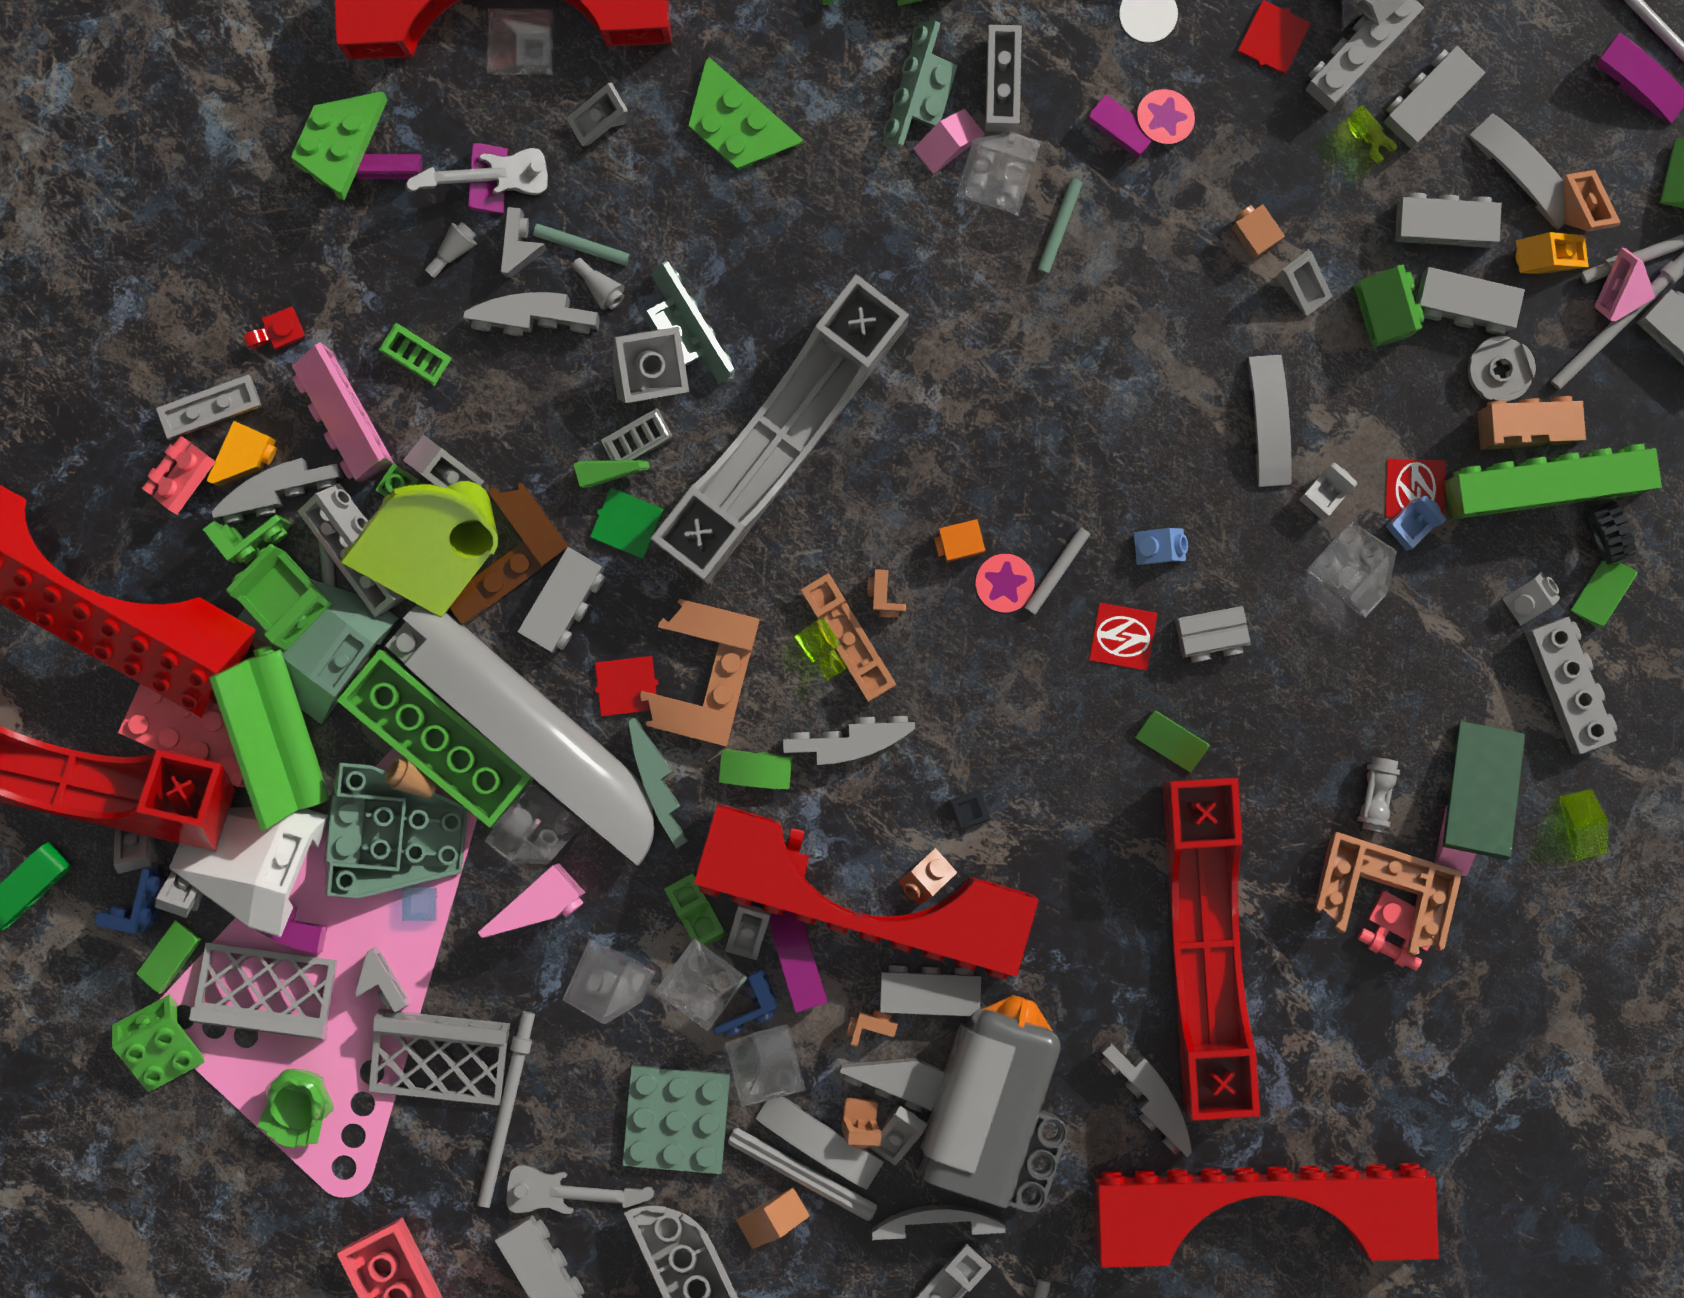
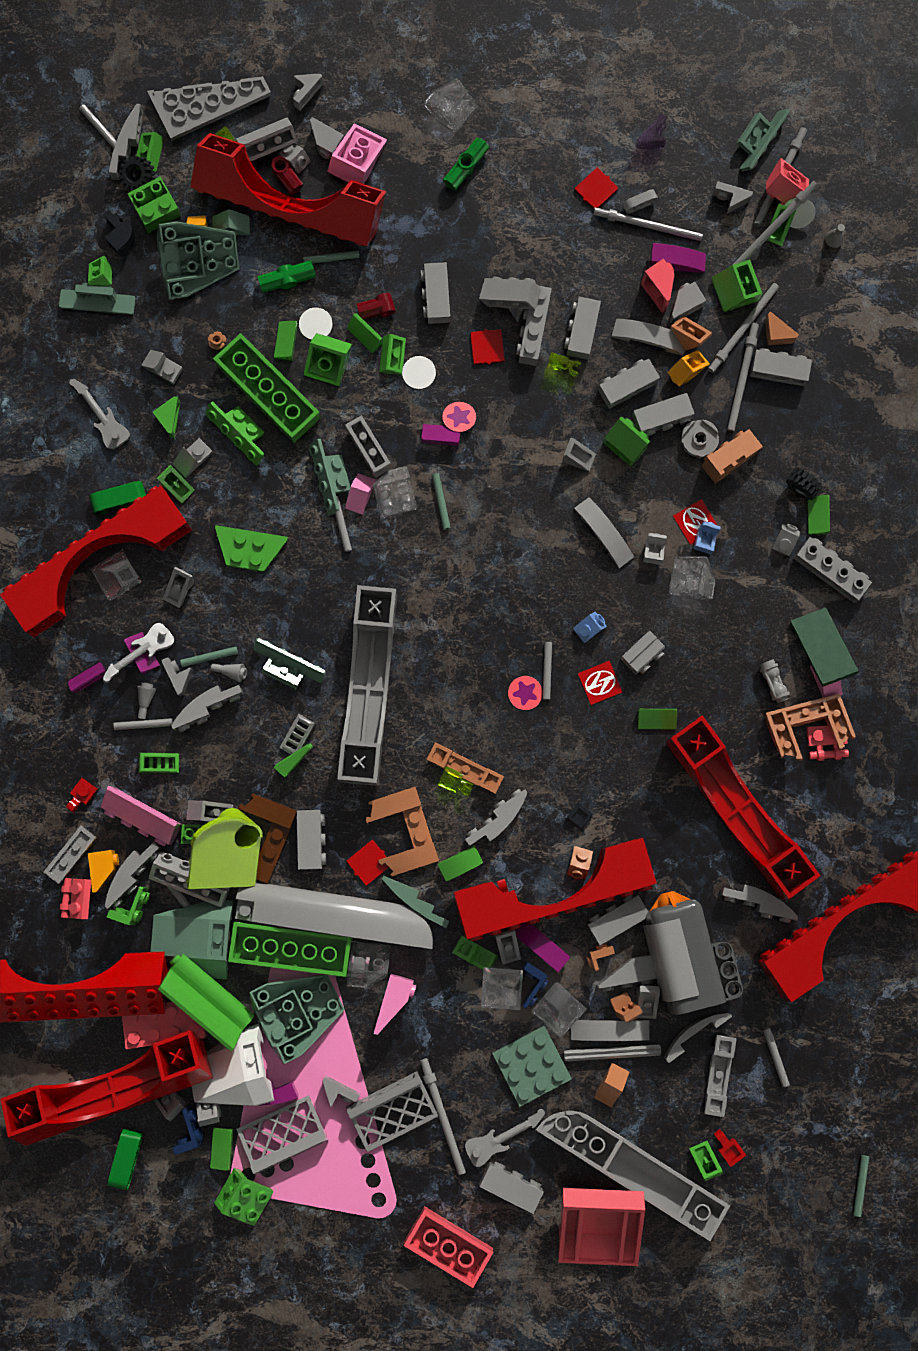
camera: 40 degrees left, 5 degrees down
(279, 596) = (165, 927): bright green panel -> none
(295, 1108) = (335, 1184): bright green hair -> none
(337, 140) = (53, 680): bright green wing -> none
(408, 778) = (287, 978): medium nougat cone -> none
(419, 903) = (333, 1039): clear light blue tile -> none
(426, 283) = (143, 724): none -> light grey bar
(607, 983) = (453, 1018): clear slope -> none
(626, 523) = (318, 781): green piece -> none
(649, 365) = (281, 694): light grey slope -> none
(878, 590) = (465, 735): nougat bracket -> none
(891, 176) = (342, 529): none -> light grey bar
(959, 541) = (490, 685): orange brick -> none
(1257, 230) = (539, 444): nougat brick -> none
(1553, 483) = (761, 476): bright green brick -> none
(1585, 824) = (883, 632): clear neon green slope -> none
(1589, 98) = (658, 283): none -> coral slope
(1617, 152) = (687, 301): none -> light grey slope
(1625, 287) = (734, 362): bright pink slope -> none

